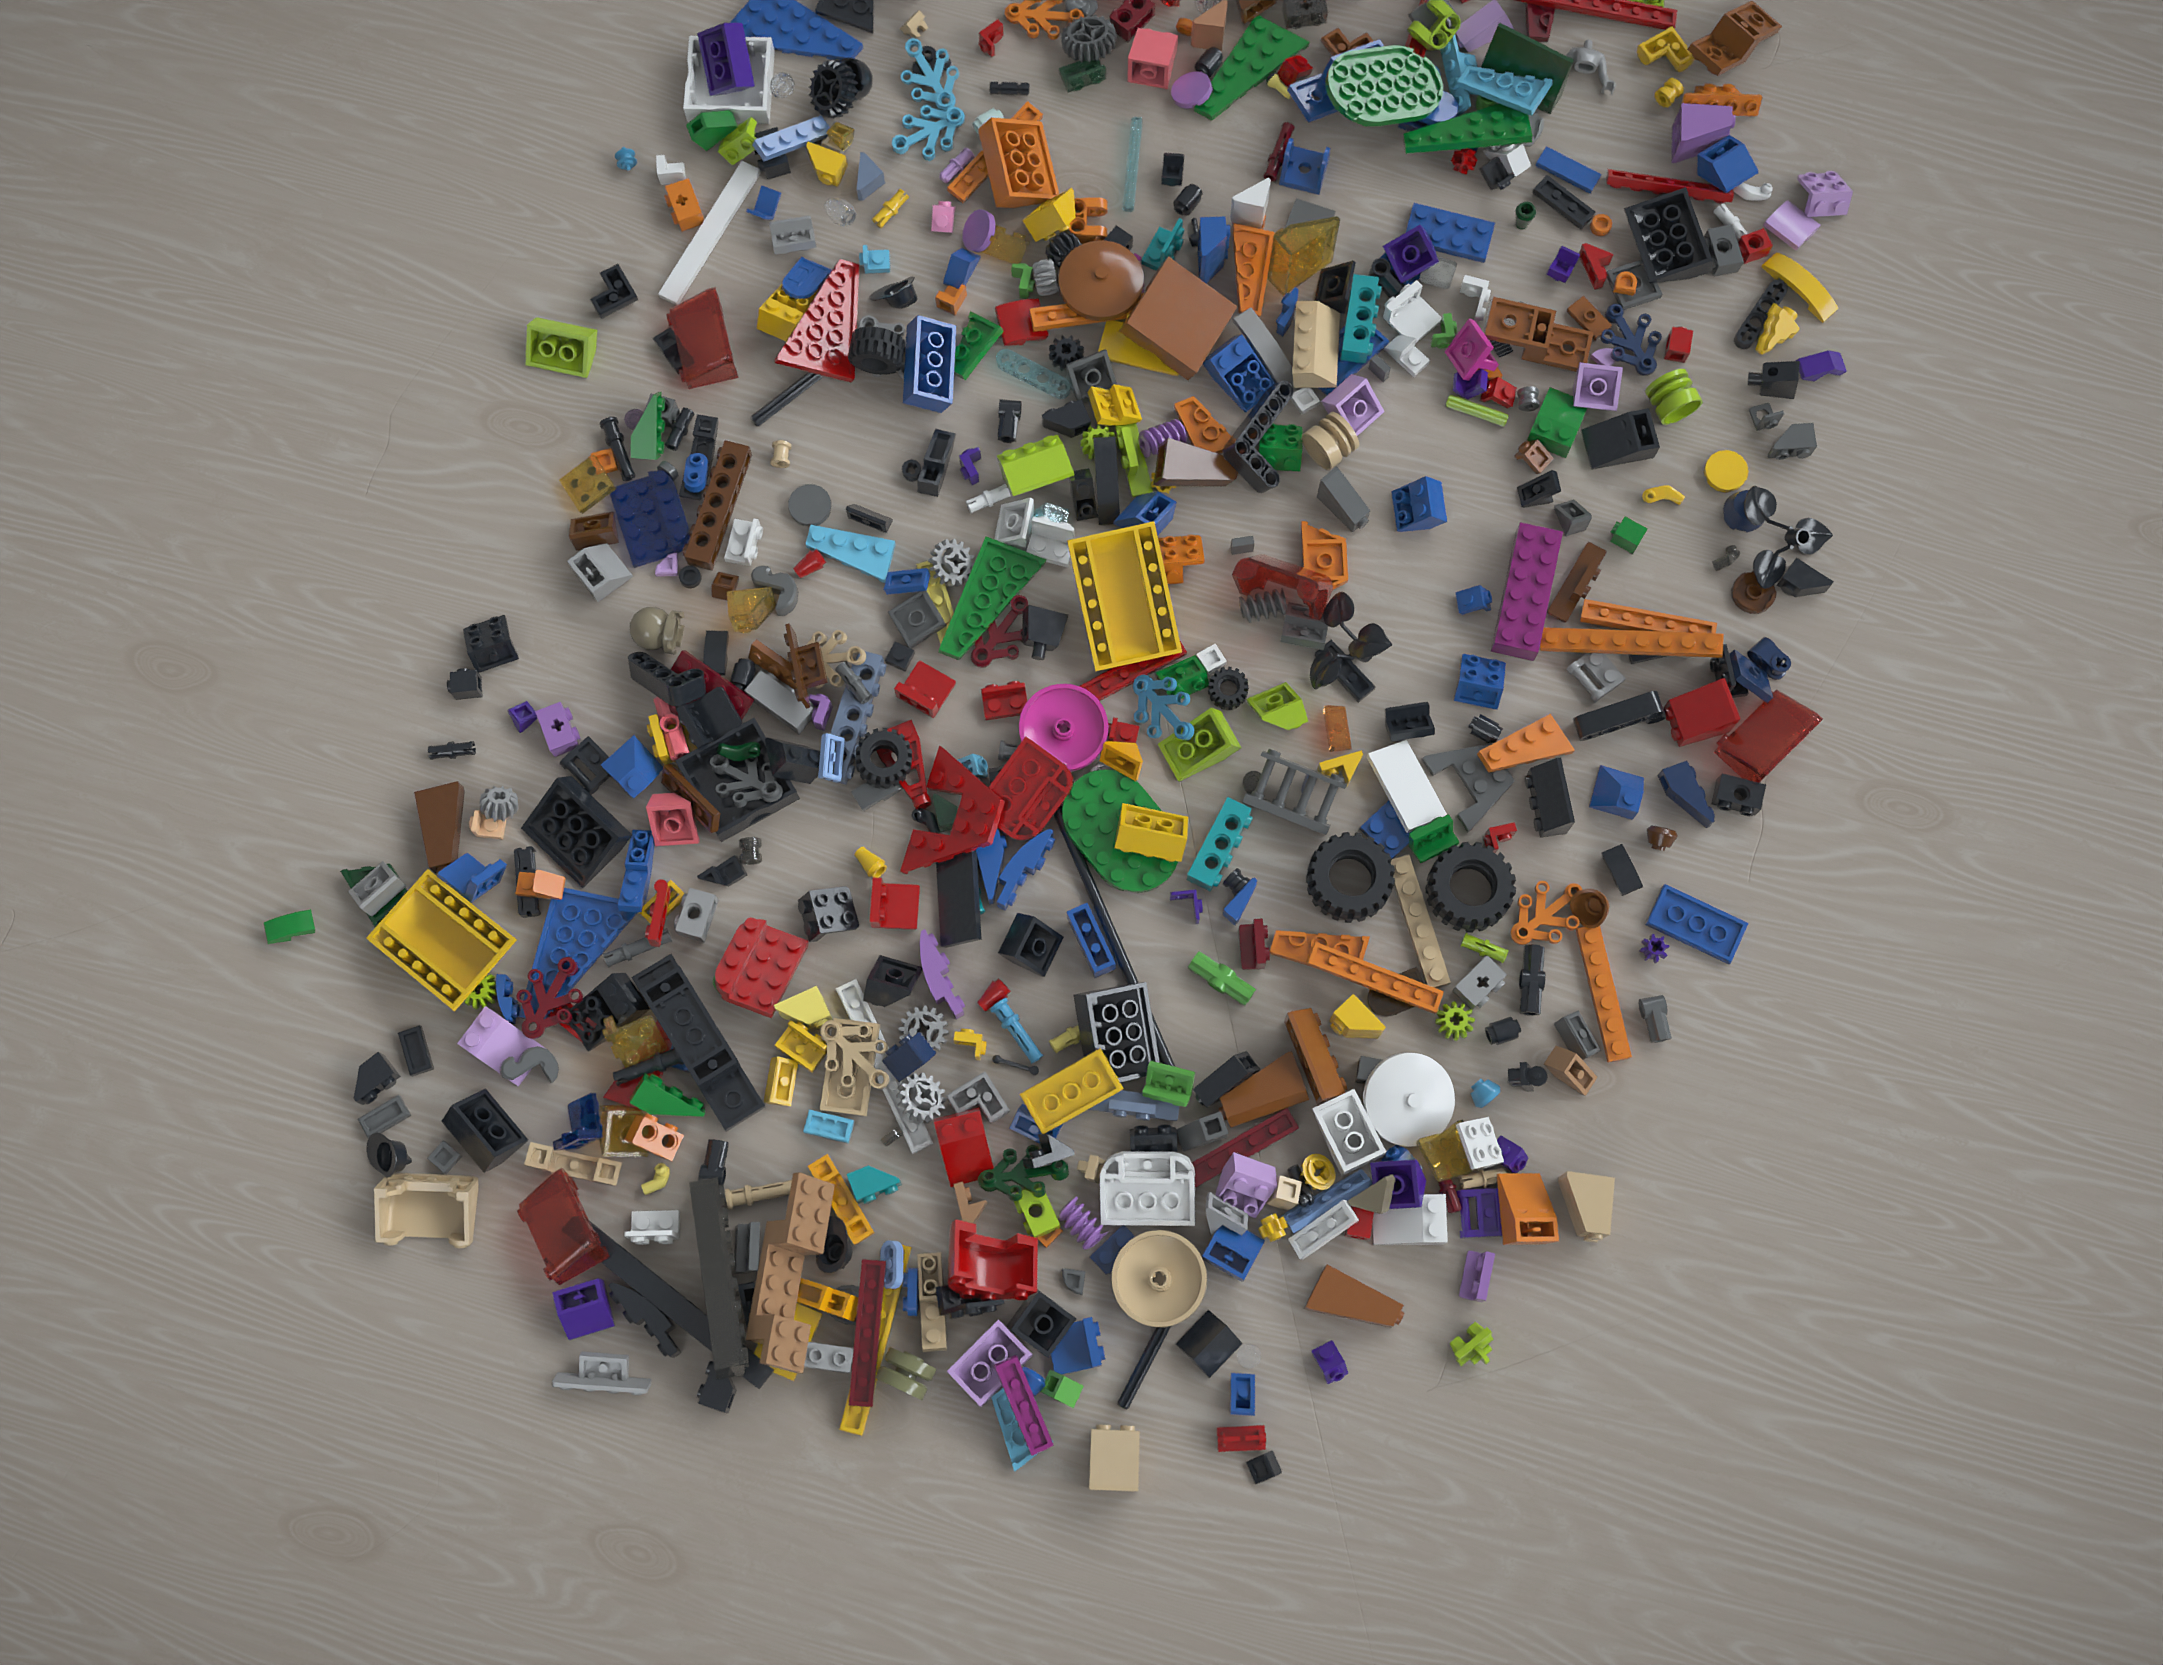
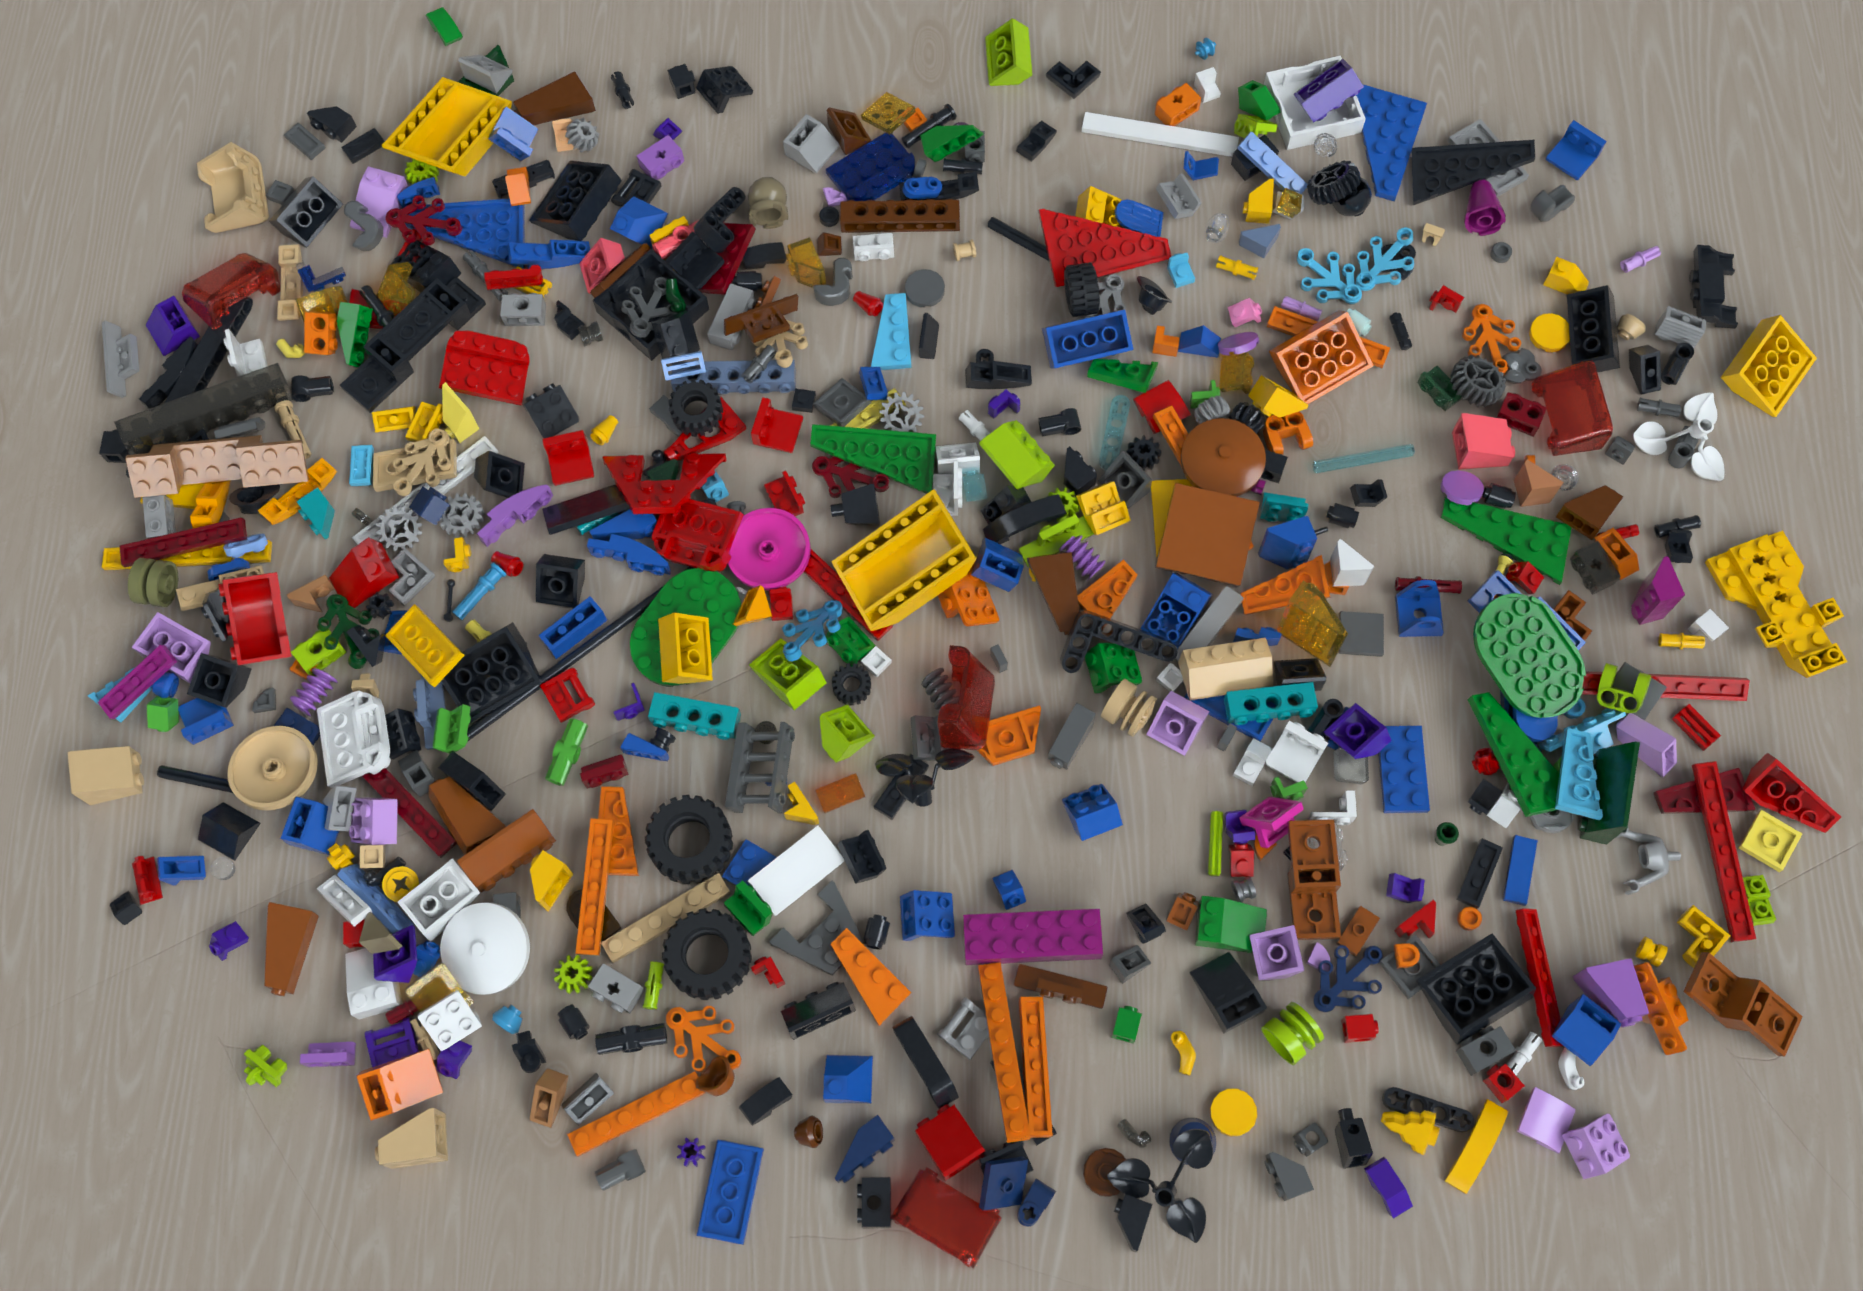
camera: 75 degrees right, 5 degrees down
(386, 1154) = (271, 153): black piece -> none
(702, 340) = (1051, 155): clear red windscreen -> none
(822, 713) = (732, 352): medium lavender bracket -> none
(998, 1132) = (380, 605): none -> black gear
(1161, 972) = (560, 697): none -> red plate

